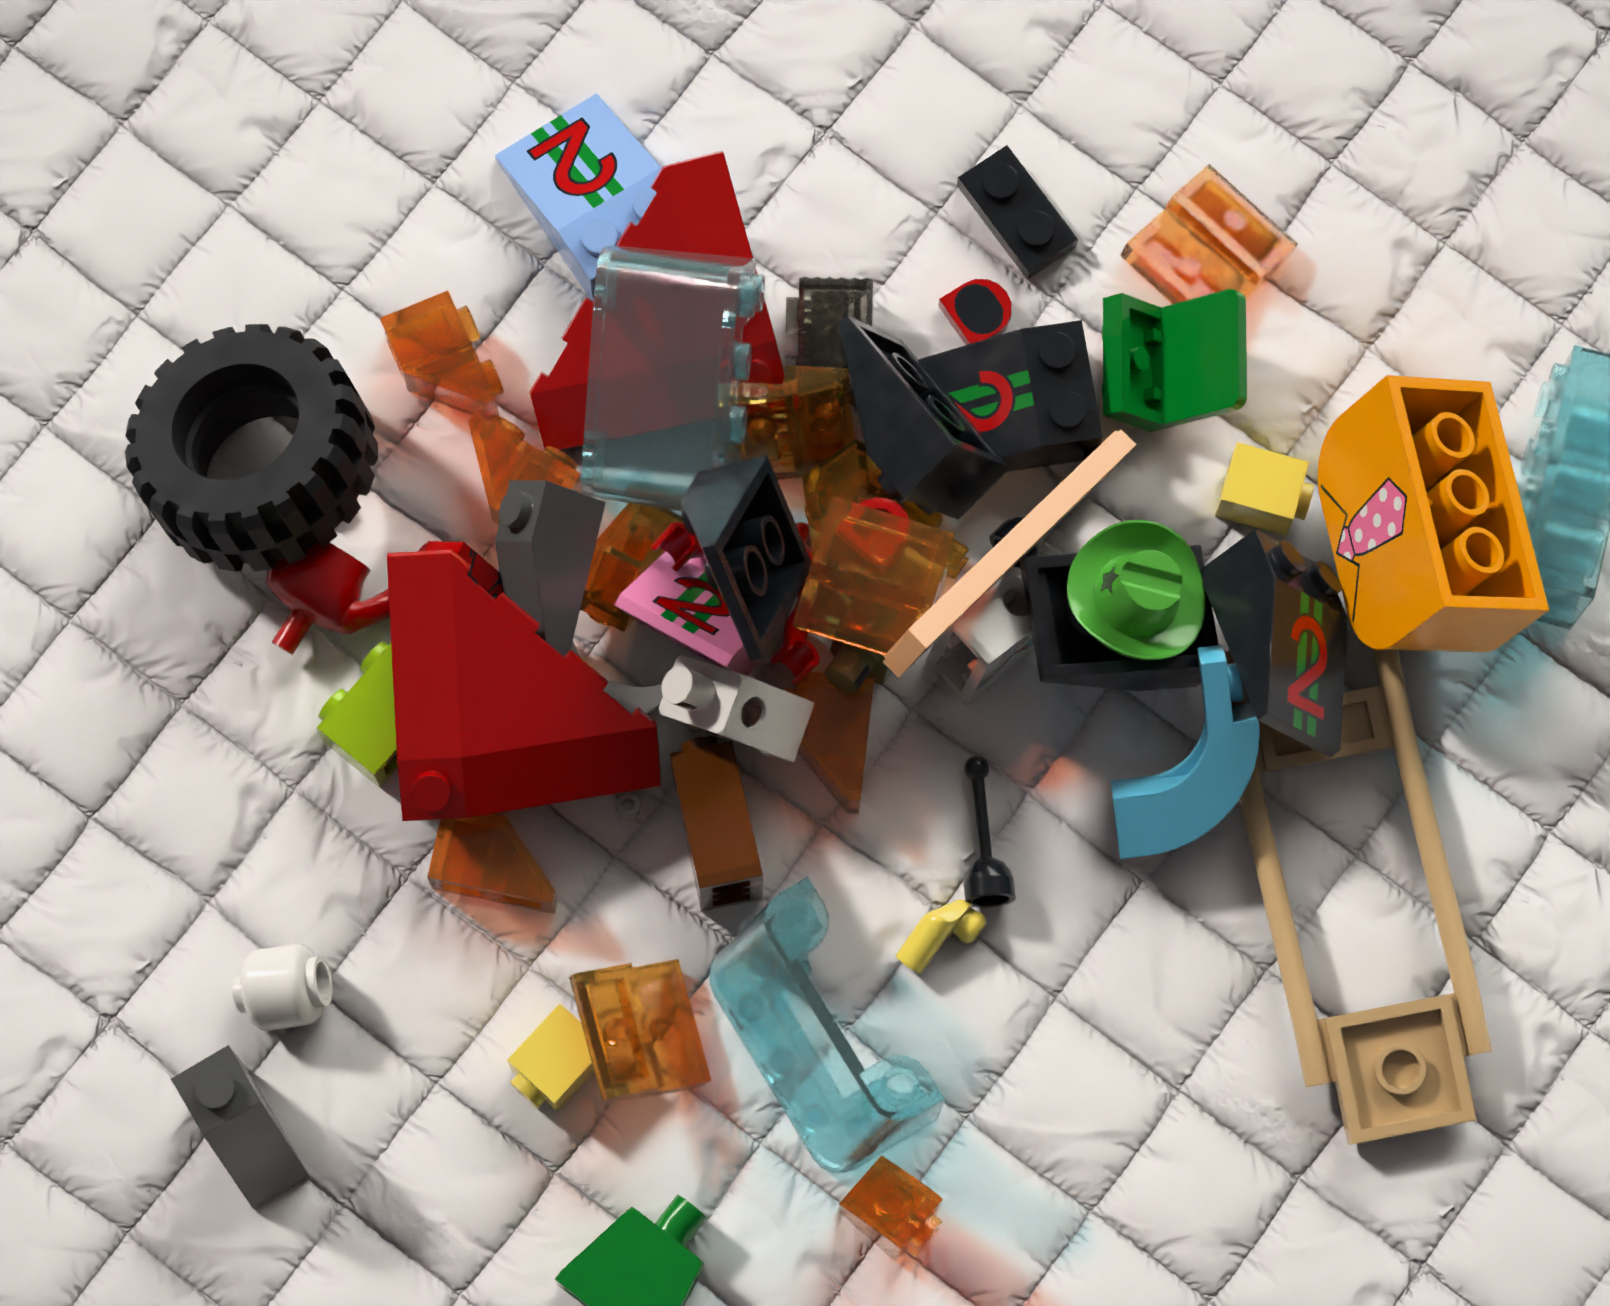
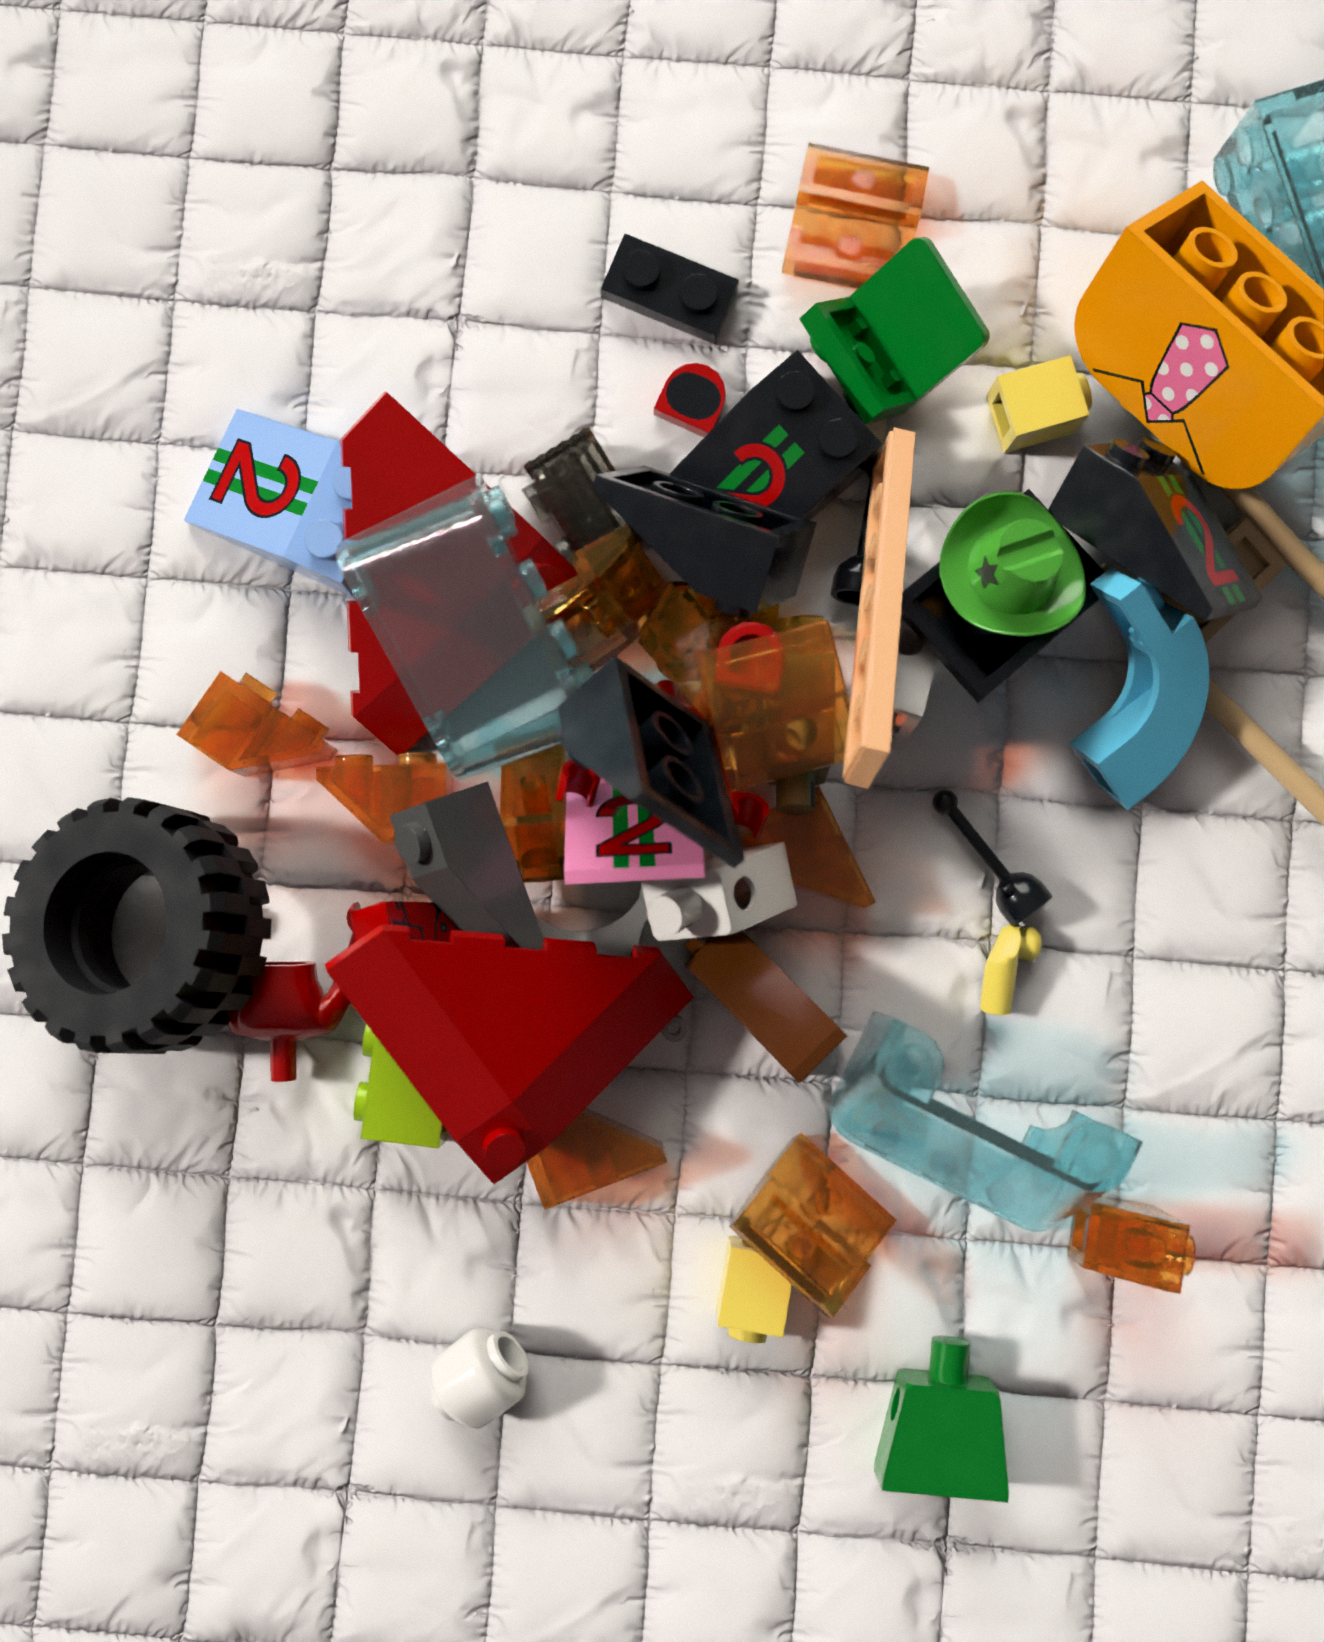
camera: 30 degrees left, 10 degrees up
(240, 1126) = (520, 1534): dark grey slope -> none

